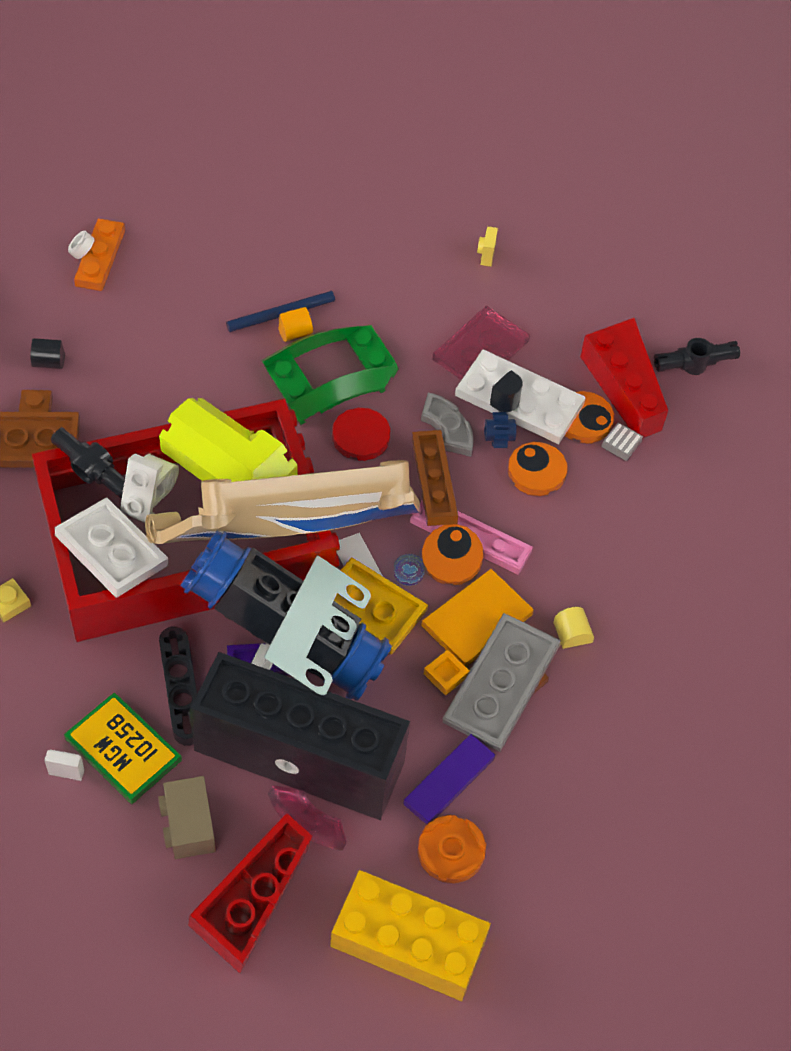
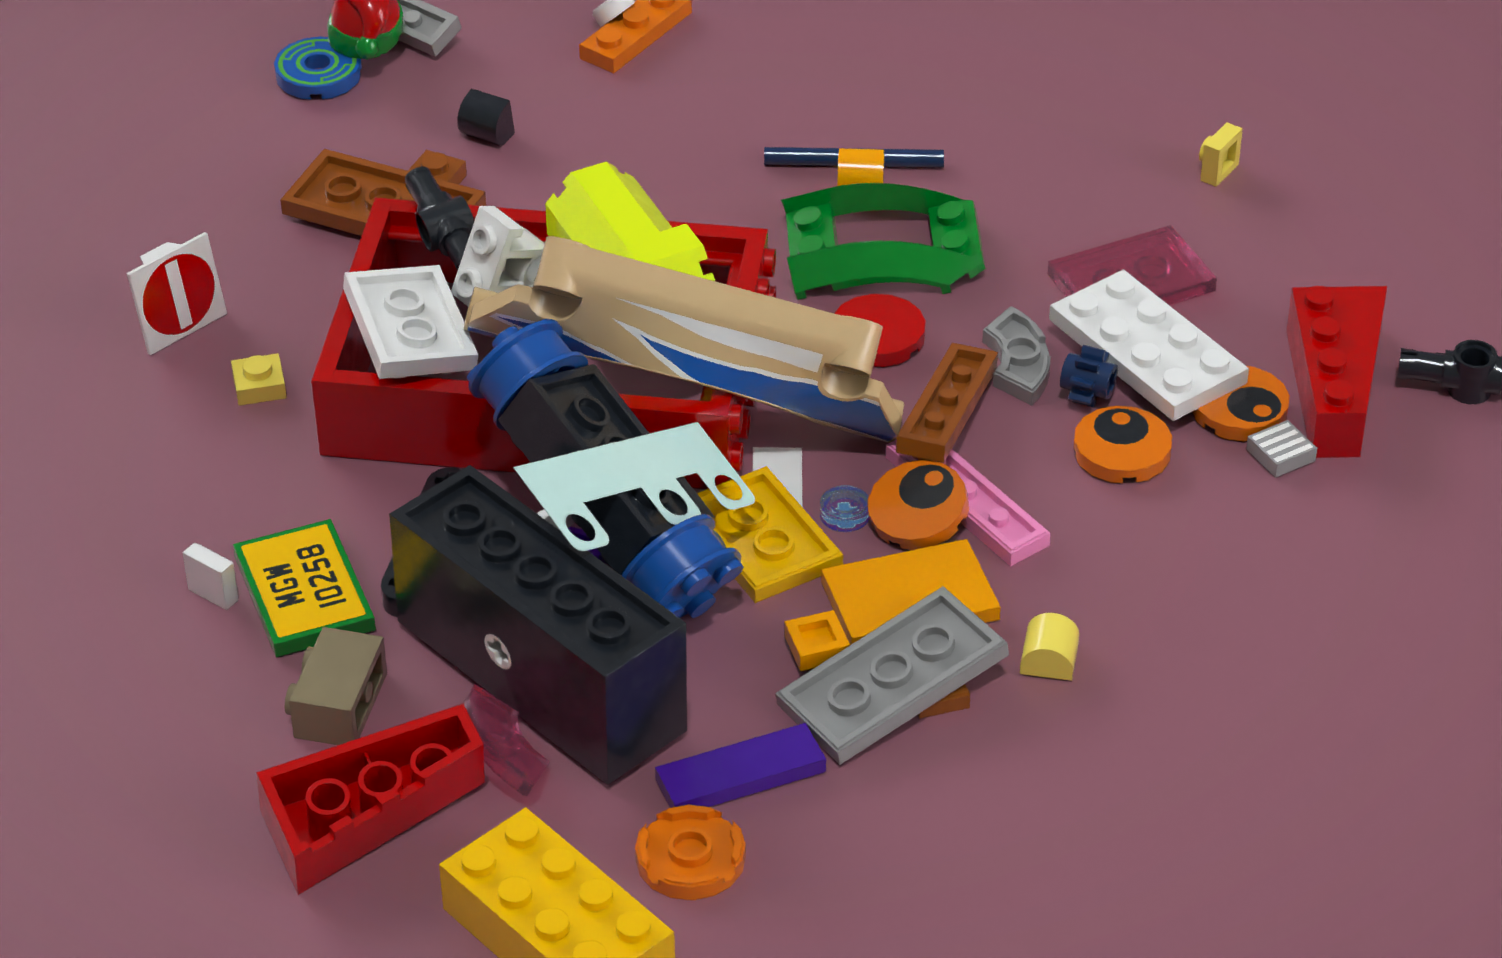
camera: 30 degrees right, 15 degrees down
(507, 392) = (1114, 318): black brick -> none

